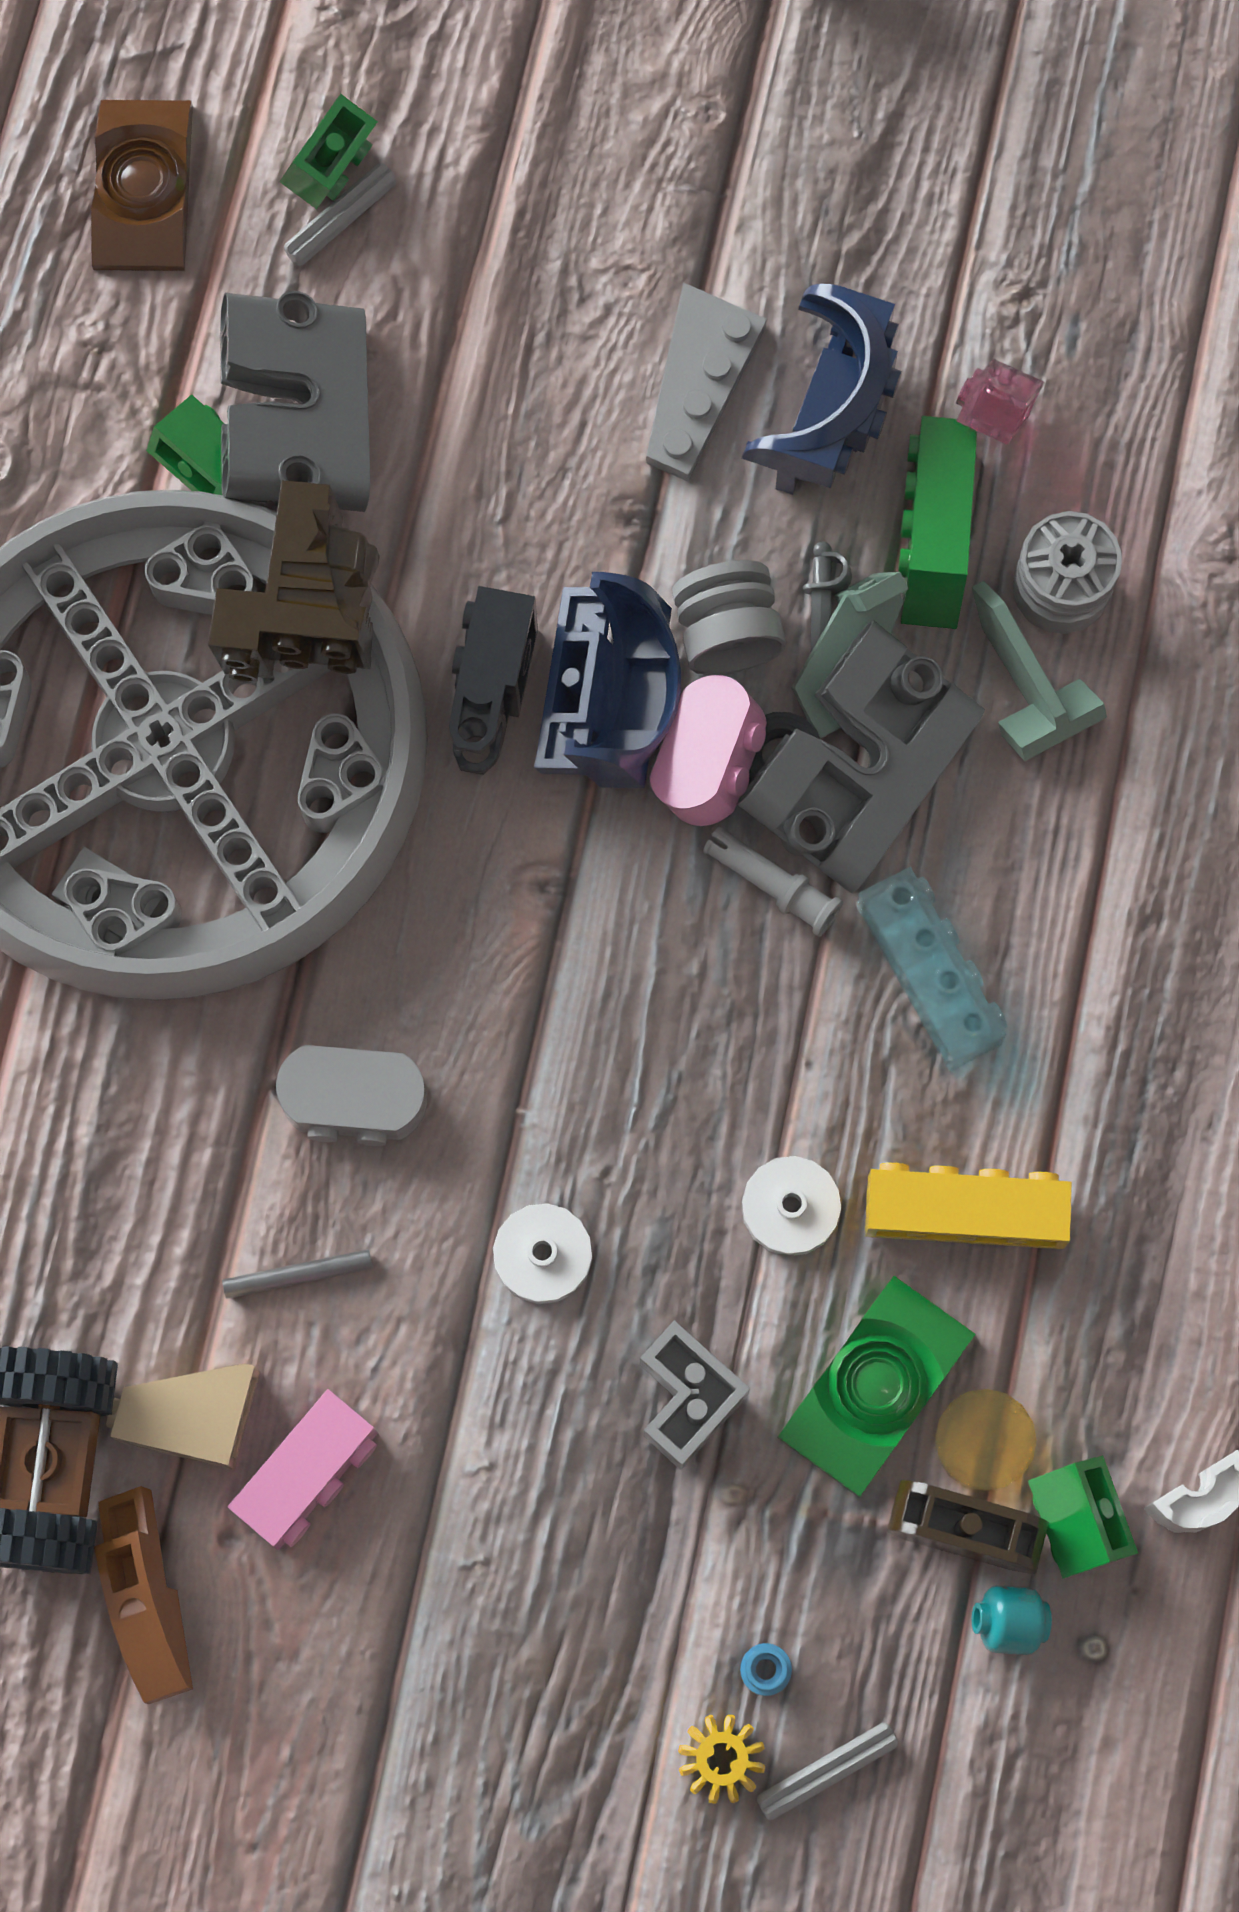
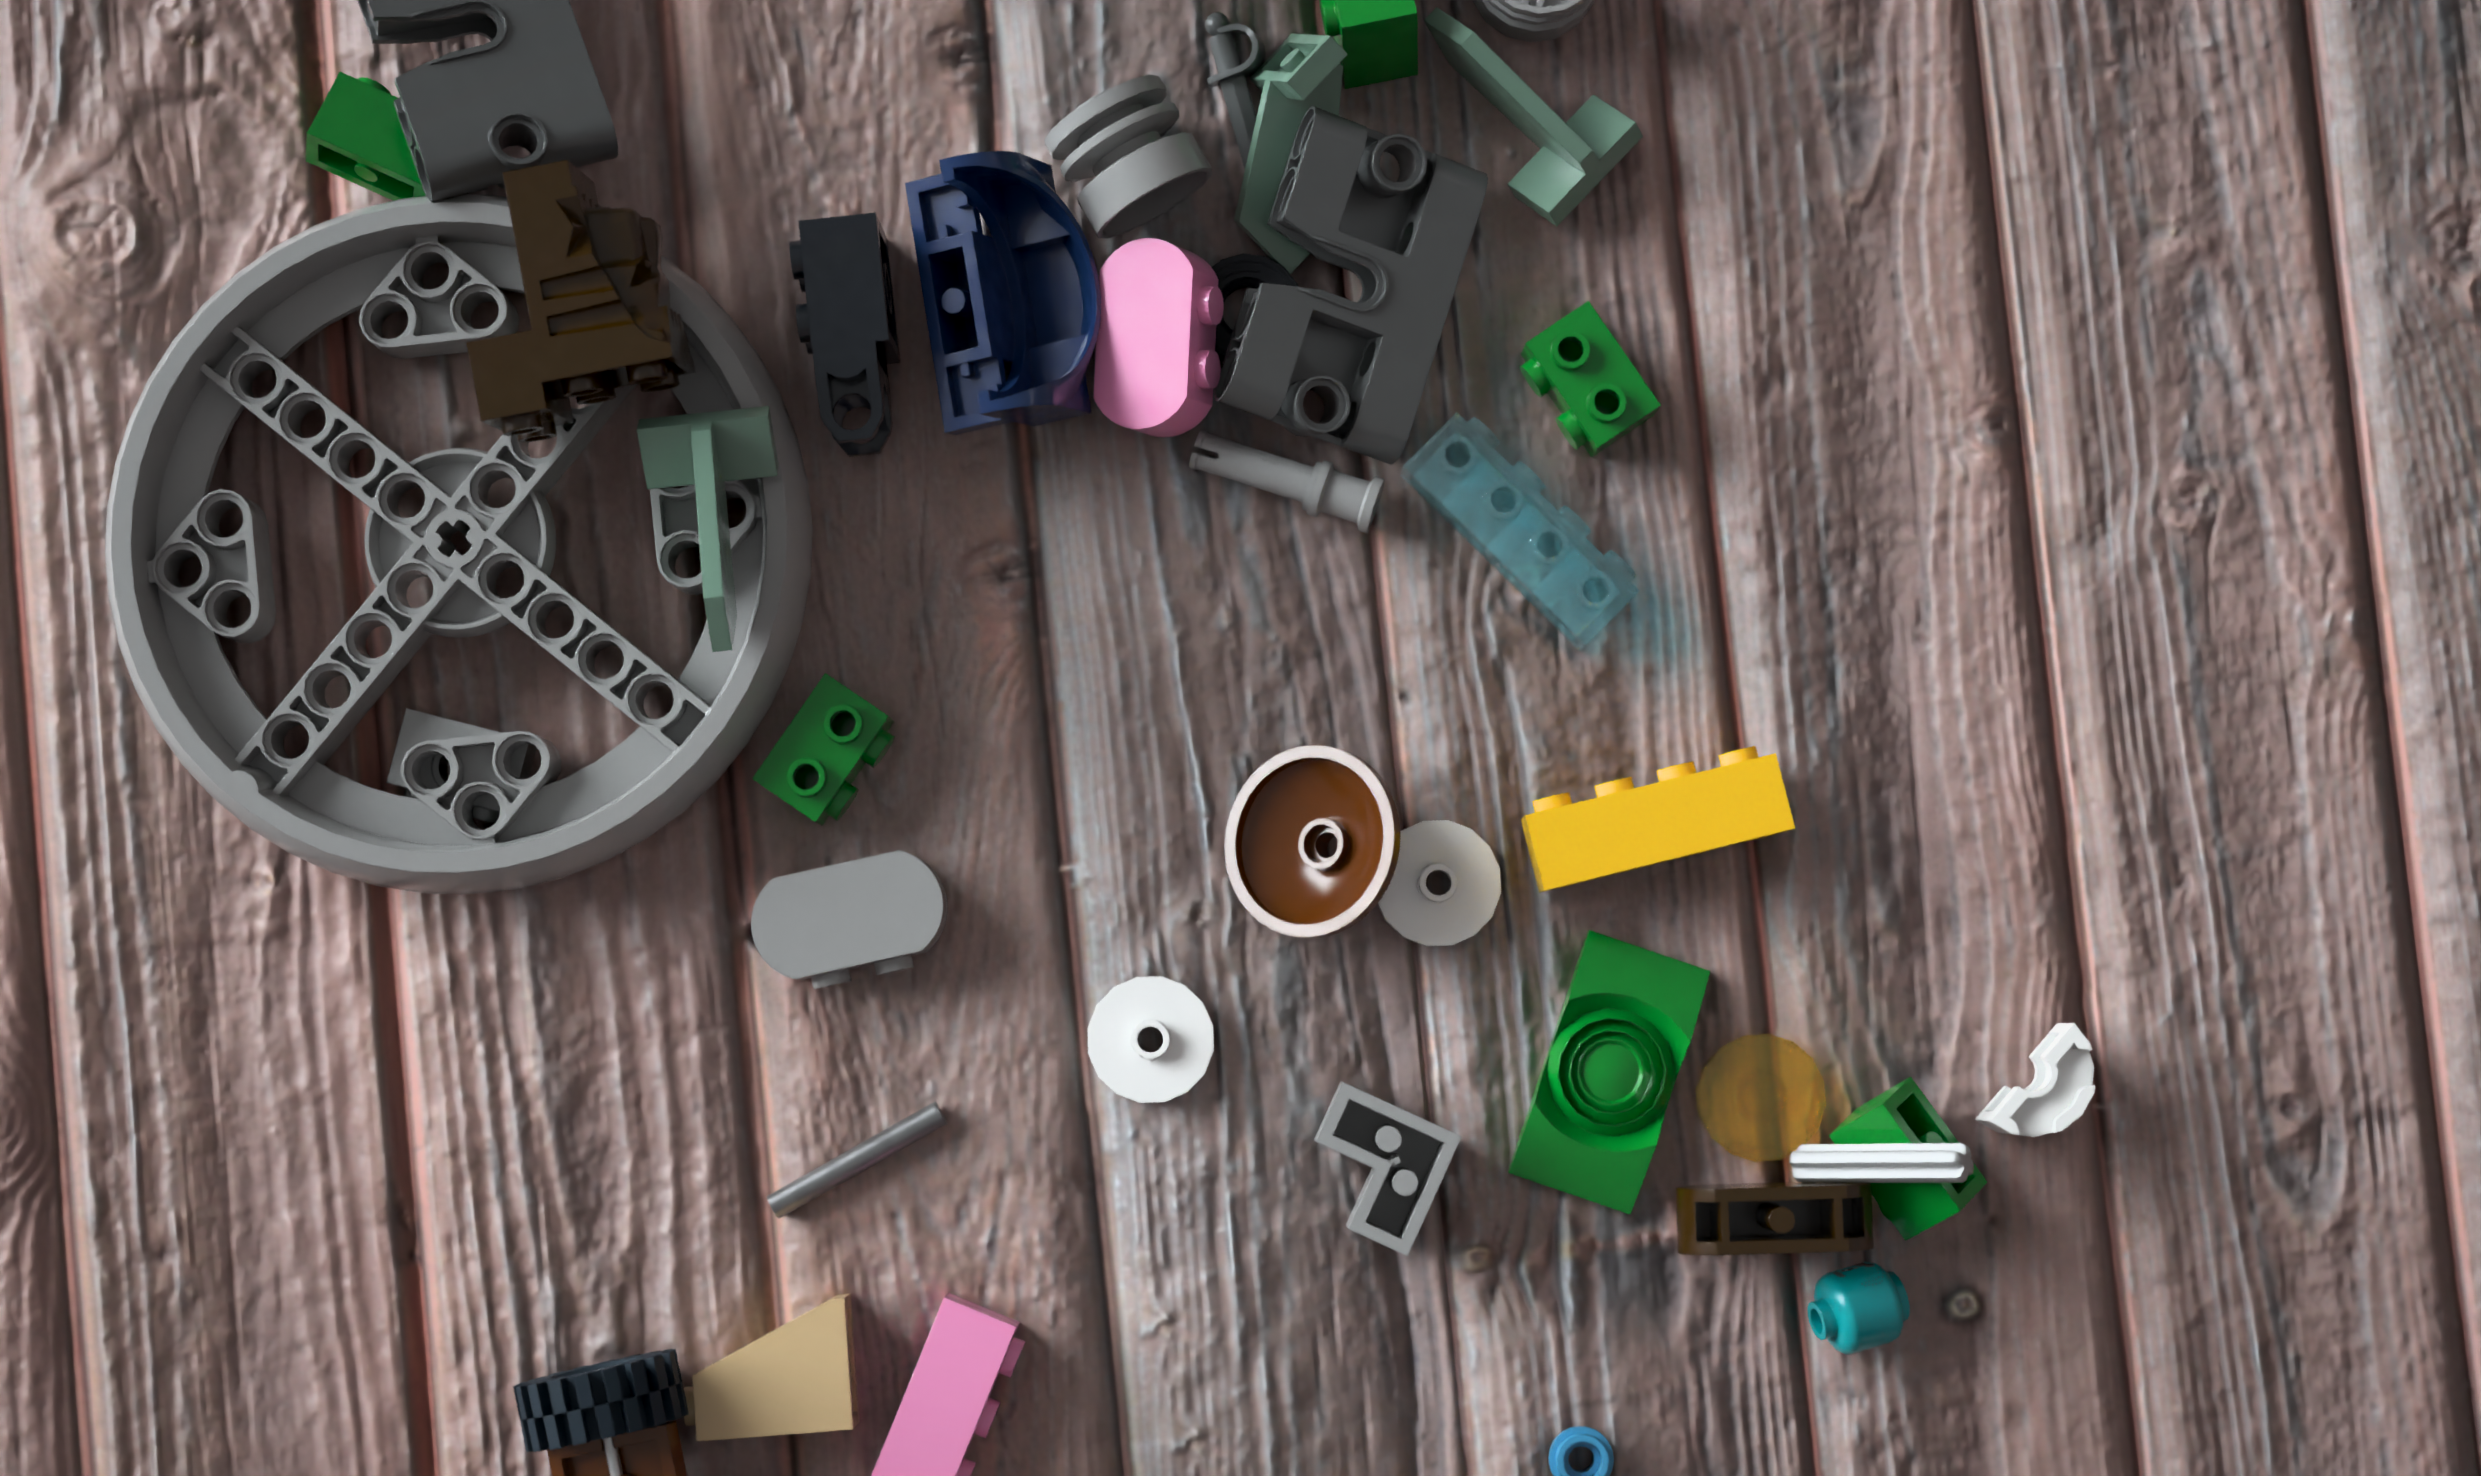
camera: 20 degrees left, 10 degrees up
(358, 724) = (706, 453): none -> sand green piece
(373, 969) = (826, 751): none -> green brick
(690, 1131) = (1282, 837): none -> reddish brown dish
(1014, 876) = (1587, 380): none -> green brick
(1064, 1508) = (1882, 1163): none -> axle

